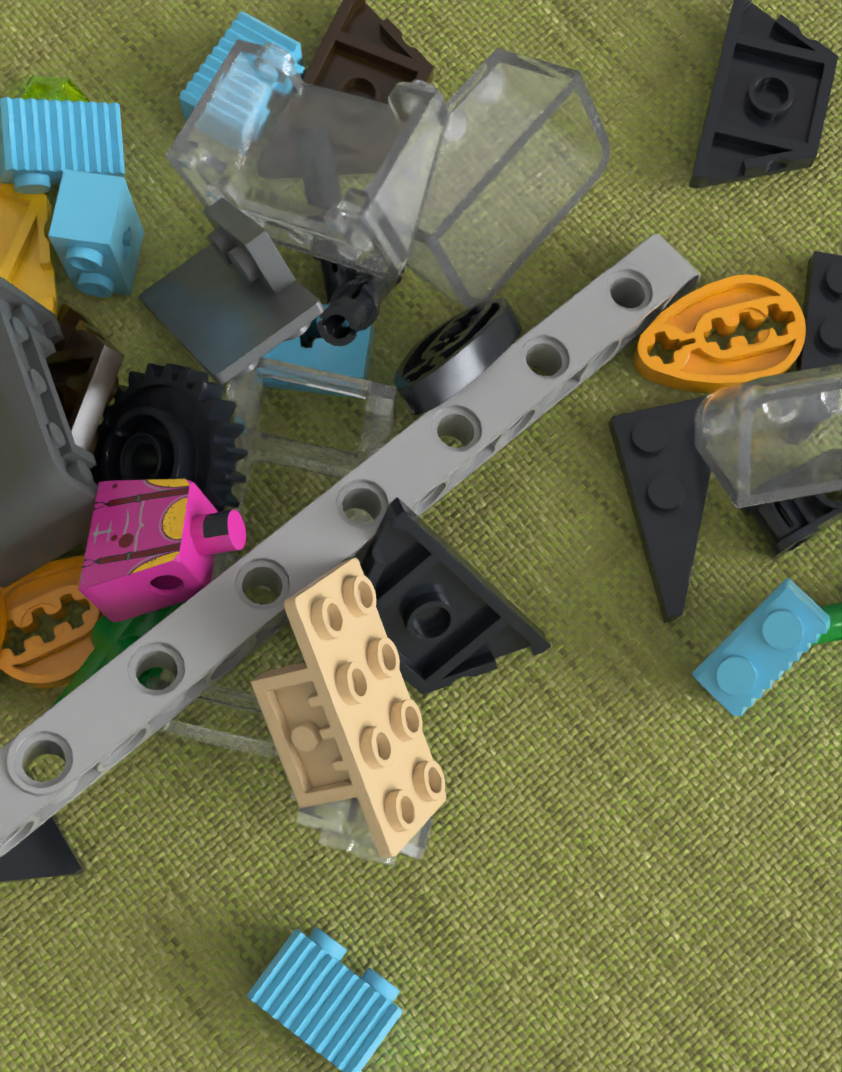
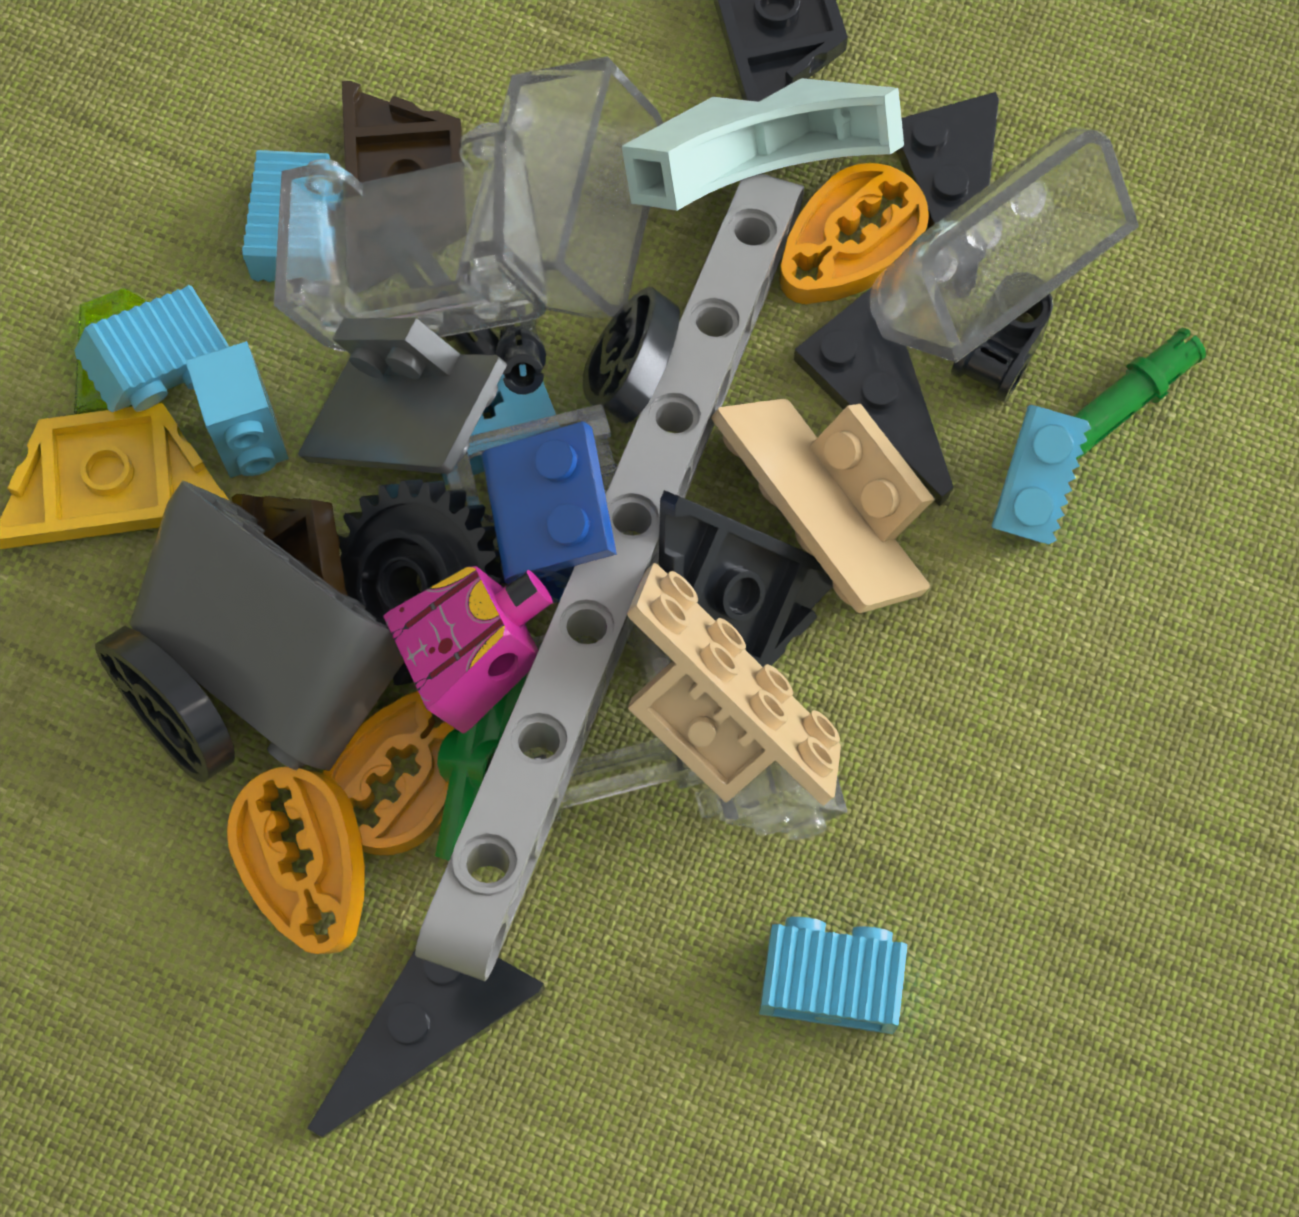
camera: 25 degrees left, 5 degrees down
(290, 457) = (548, 505): none -> blue piece
(568, 569) = (838, 492): none -> tan bracket
(665, 203) = (743, 138): none -> light aqua arch

